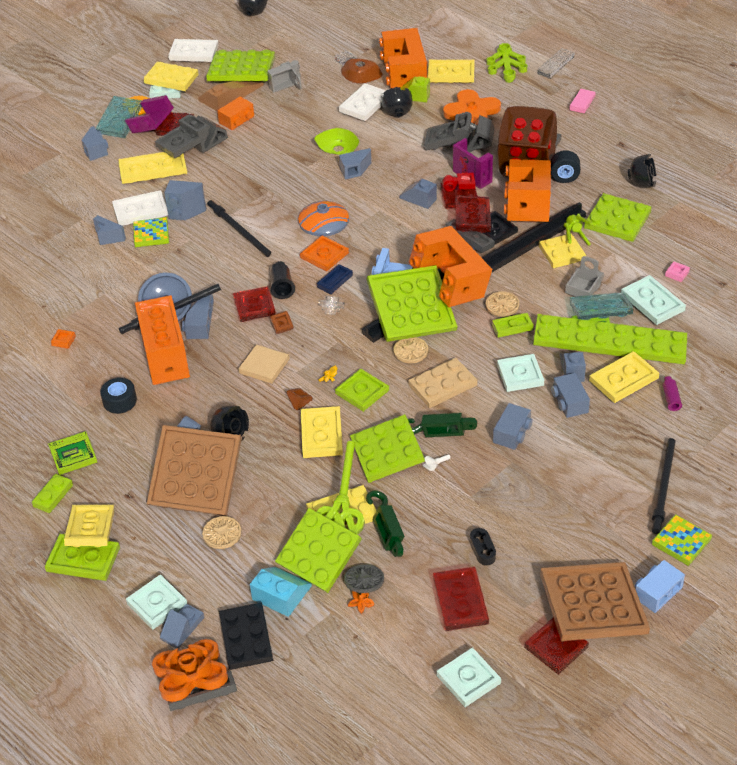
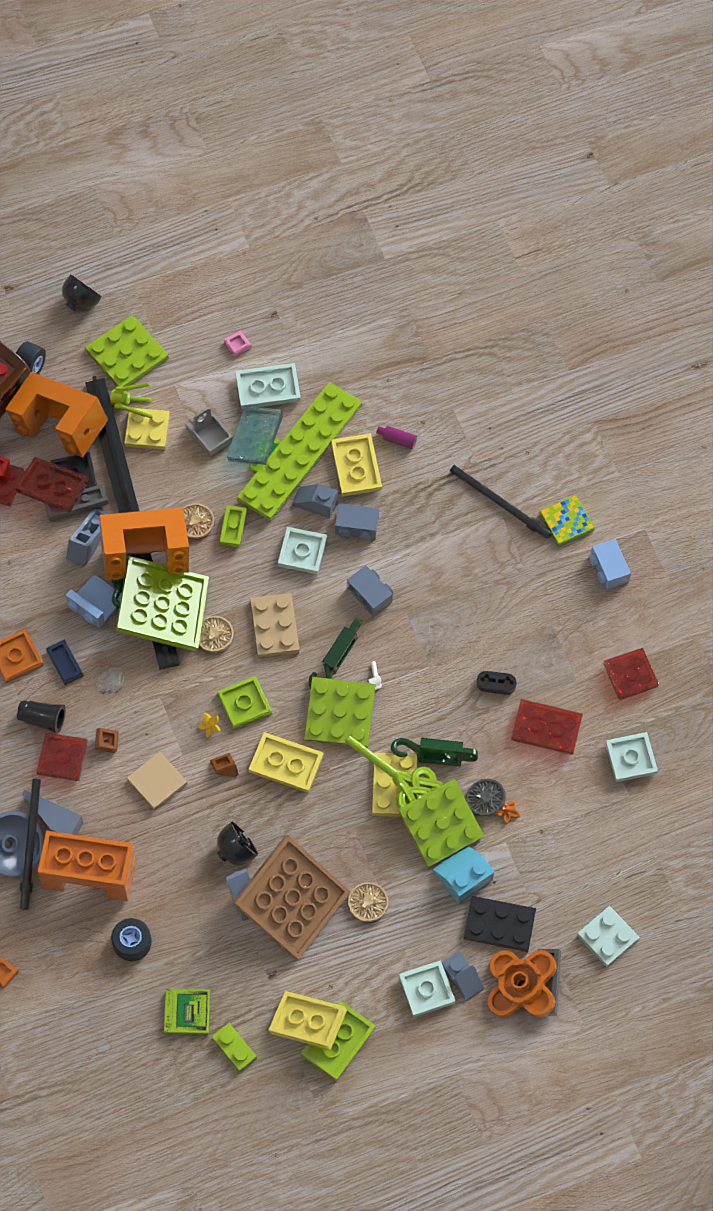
camera: 70 degrees left, 20 degrees up
(272, 727) = (608, 936): none -> light aqua plate
(594, 601) = (604, 622): medium nougat plate -> none

